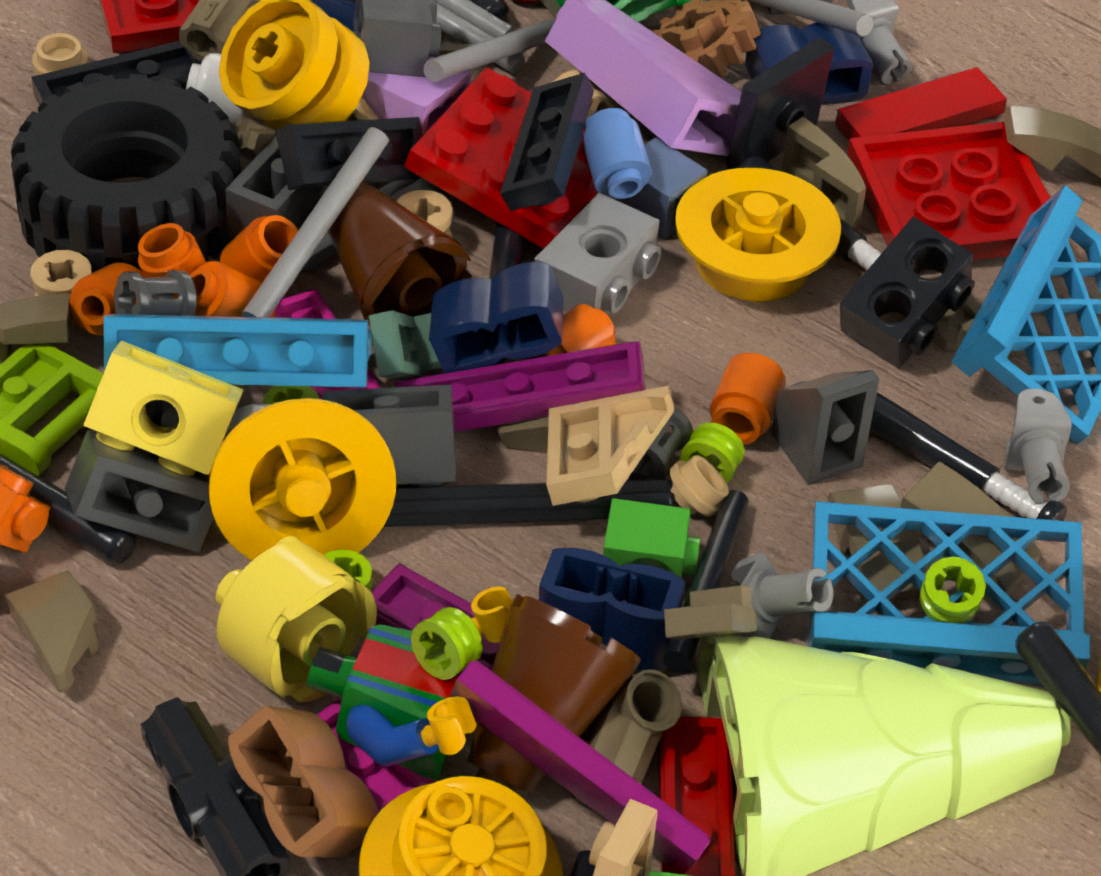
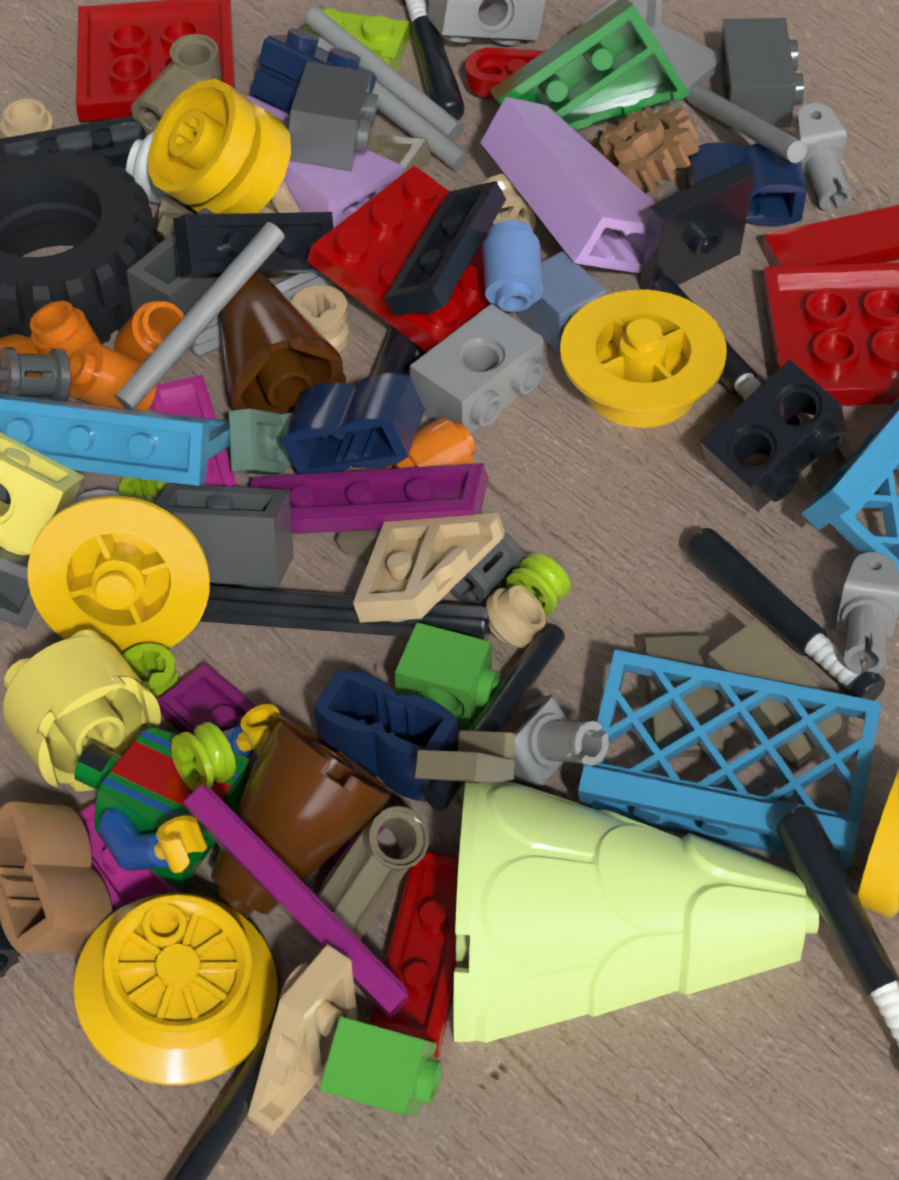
camera: 15 degrees right, 5 degrees up
(487, 51) = (416, 150): light grey bar -> none
(747, 395) = (588, 529): orange brick -> none
(822, 163) = (732, 298): dark tan slope -> none
(826, 423) = (656, 566): dark grey slope -> none
(968, 581) = (748, 751): lime bush -> none

